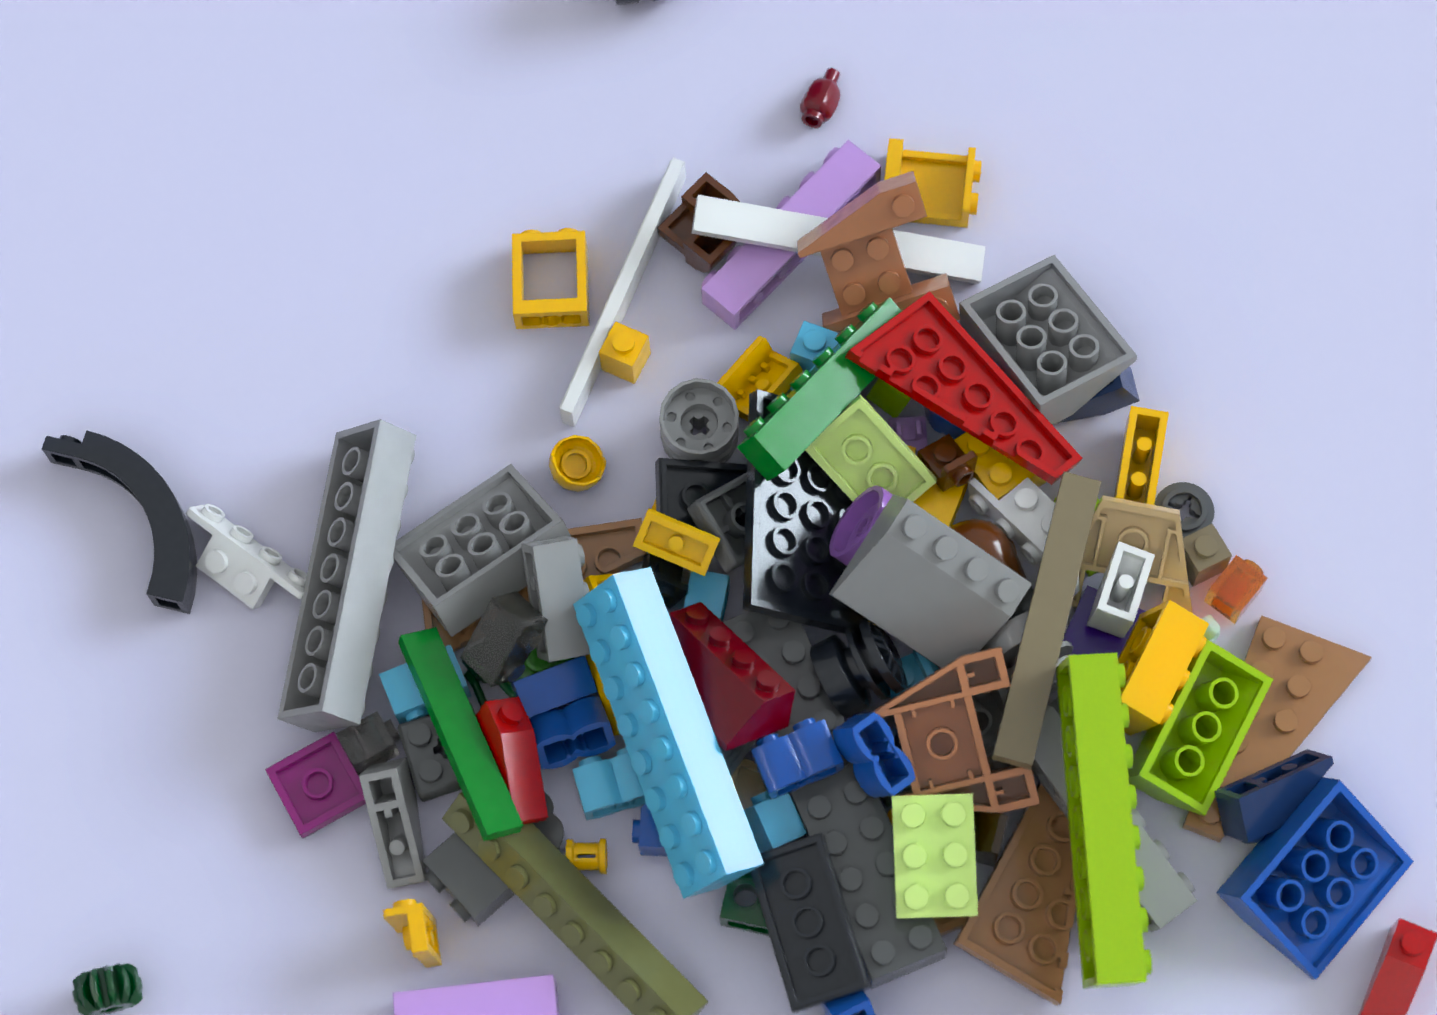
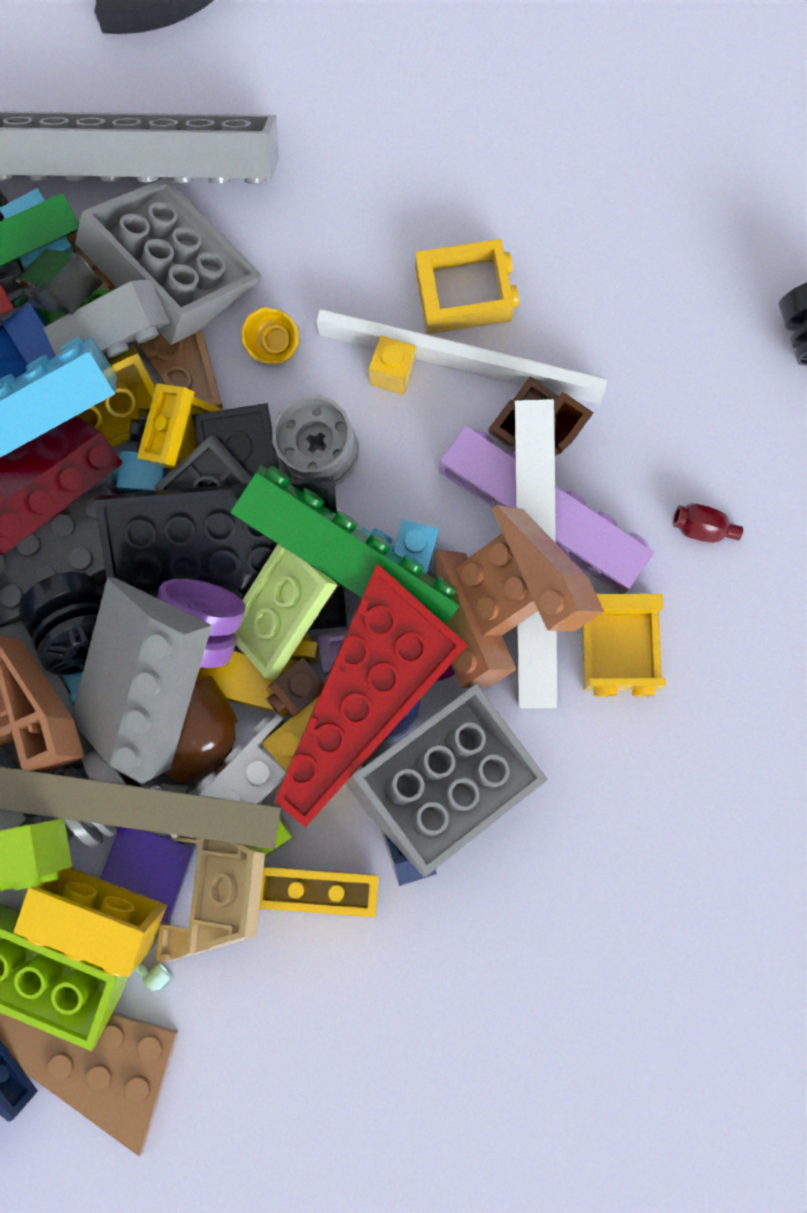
camera: 80 degrees right, 10 degrees up
(240, 561) = (153, 60): white bracket -> none
(758, 369) = (377, 495): yellow bracket -> none
(1121, 590) = (172, 882): white slope -> none
(1200, 505) = (267, 950): dark grey gear -> none
(1205, 554) = (231, 967): dark tan brick -> none
(1236, 588) = (200, 1005): clear orange brick -> none

